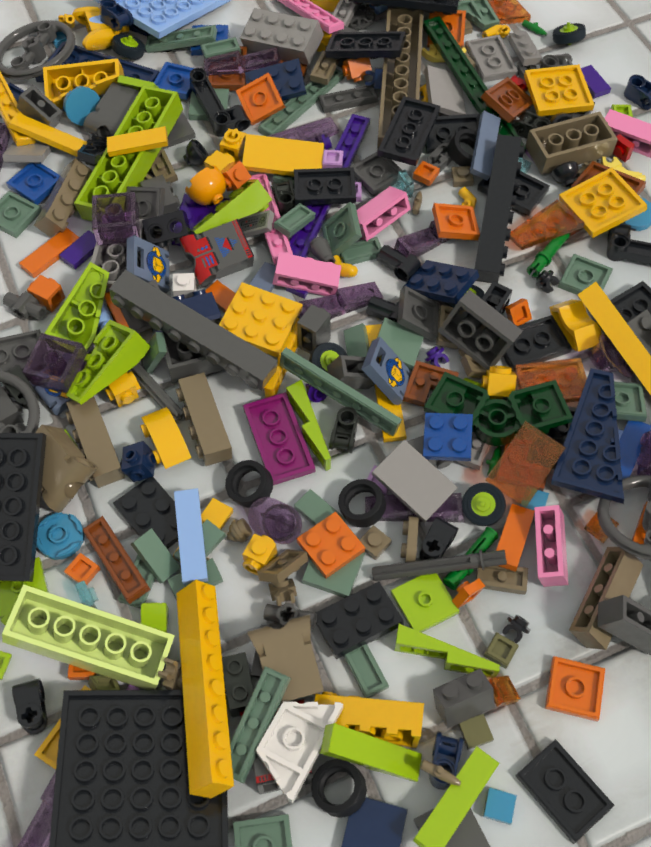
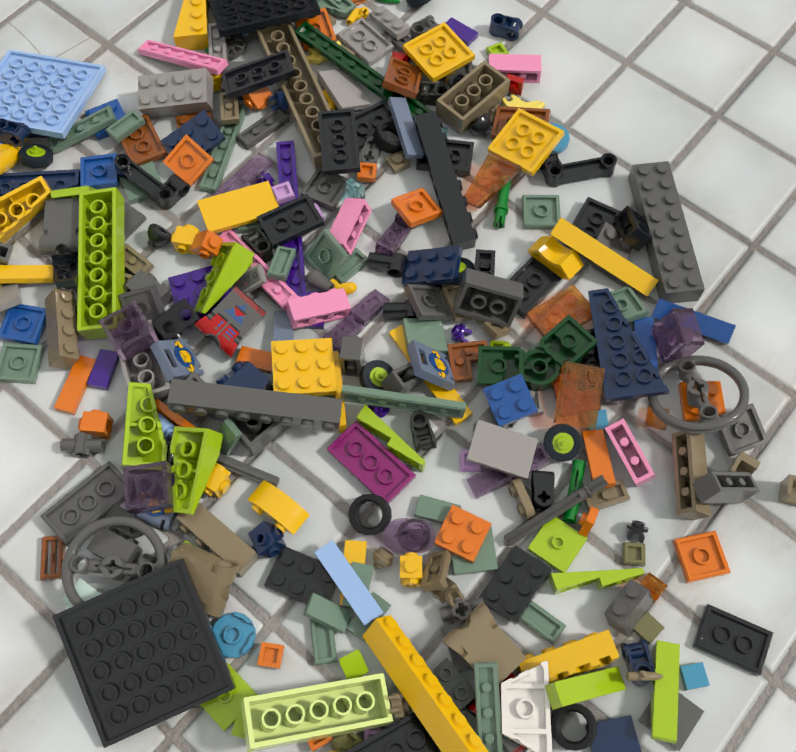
camera: 25 degrees left, 5 degrees up
(80, 103) = (26, 232): dark azure tile -> none
(87, 595) = (289, 675): clear light blue plate -> none
(116, 560) = (294, 632): dark orange tile -> none
(137, 141) = (105, 249): yellow tile -> none
(184, 284) = (218, 364): white brick -> none
(204, 419) = (301, 475): dark tan brick -> none
(207, 187) = (191, 265): light orange cylinder -> none
(233, 143) = (188, 213): yellow brick -> none
(235, 63) = (147, 135): slope -> none
(356, 340) = (391, 351): sand green tile -> none
(357, 487) = (457, 475): black tyre -> none
(375, 542) = (494, 513): dark tan plate -> none
(417, 203) = (373, 202): dark tan helmet -> none
(468, 197) = (414, 181): yellow arm -> none
(495, 457) = (551, 404): green helmet -> none
(499, 381) = (523, 333): yellow brick -> none
(518, 312) = (506, 266): orange plate -> none
(544, 280) = (511, 228): black plate -> none
(608, 359) = (594, 275): piece -> none

